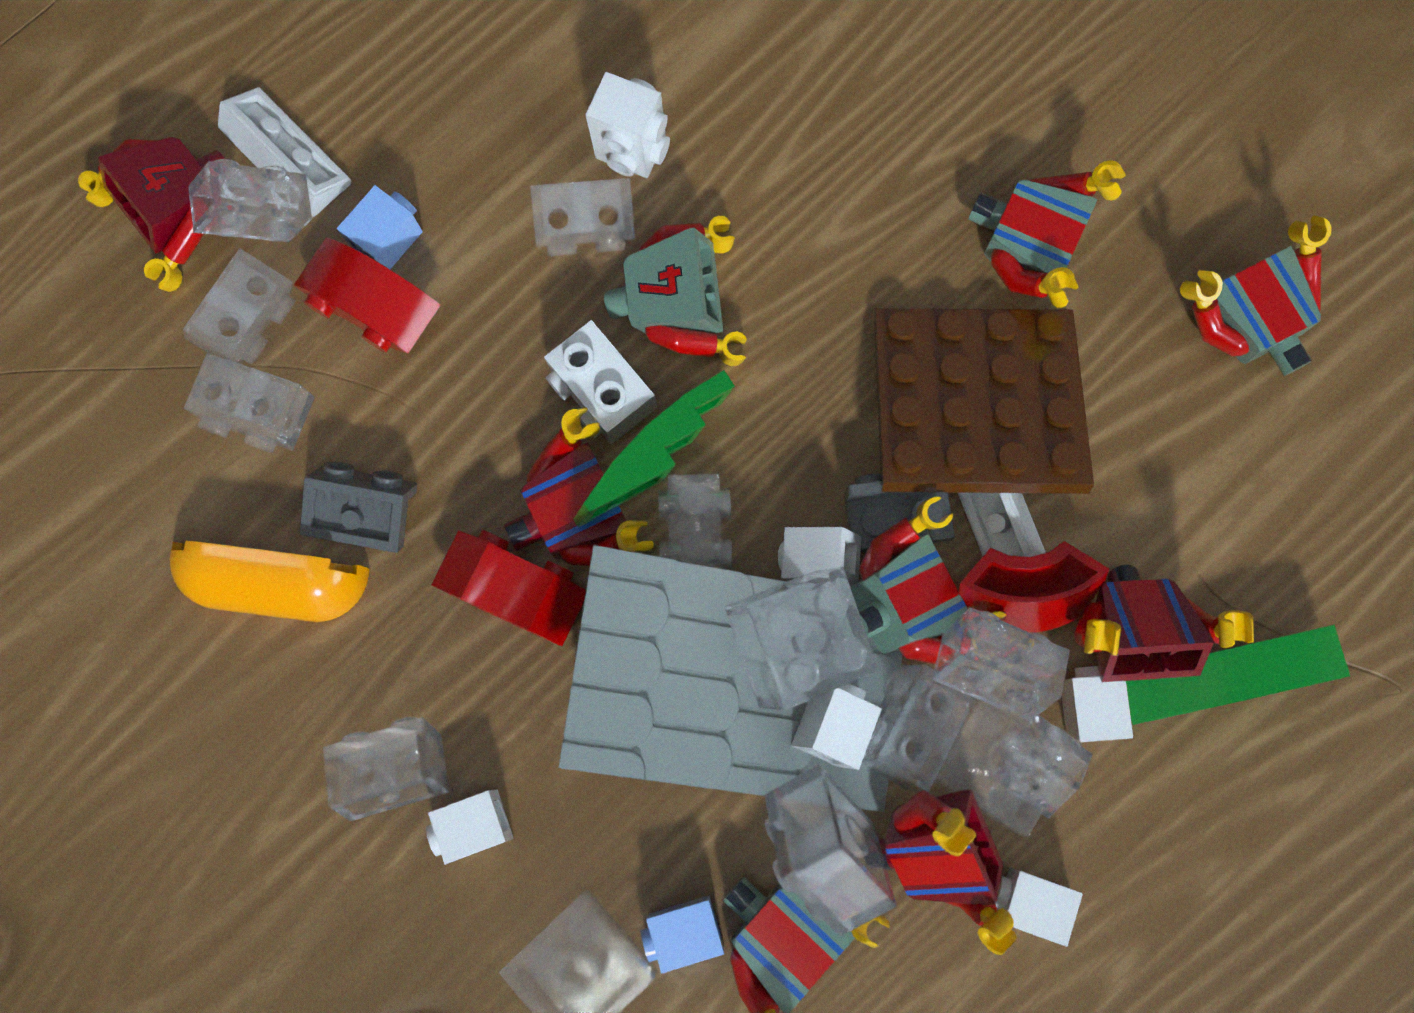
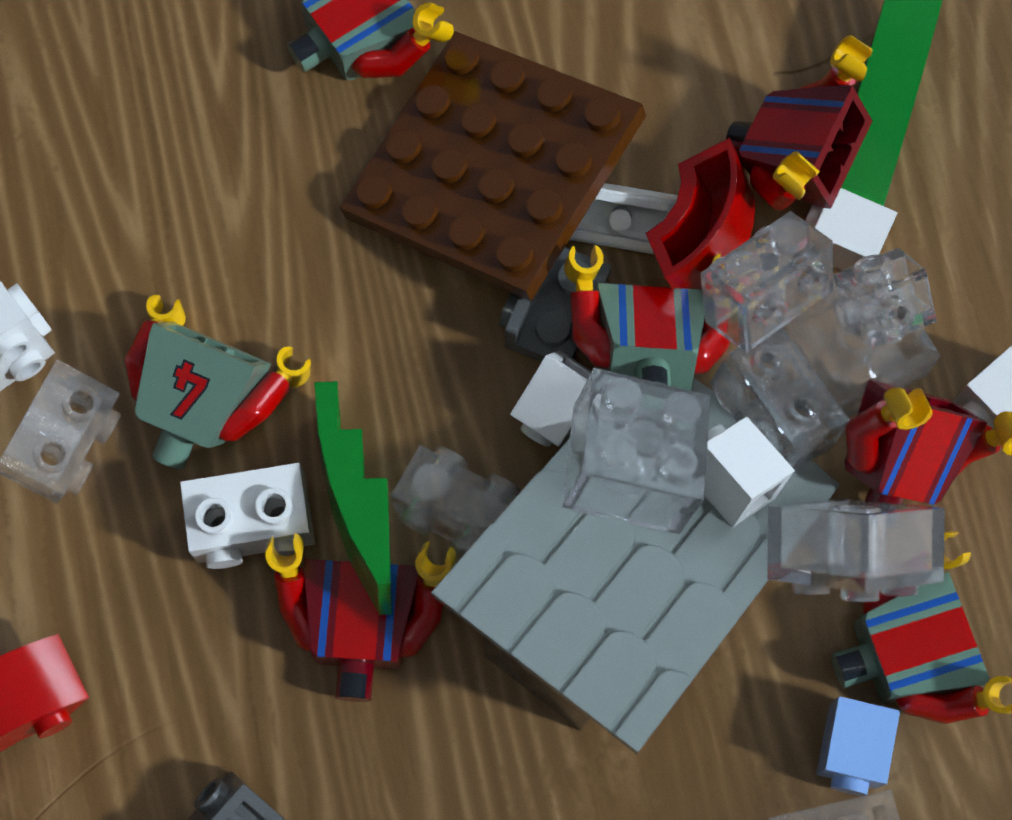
camera: 65 degrees left, 5 degrees down
(511, 587) = (405, 727): red brick -> none

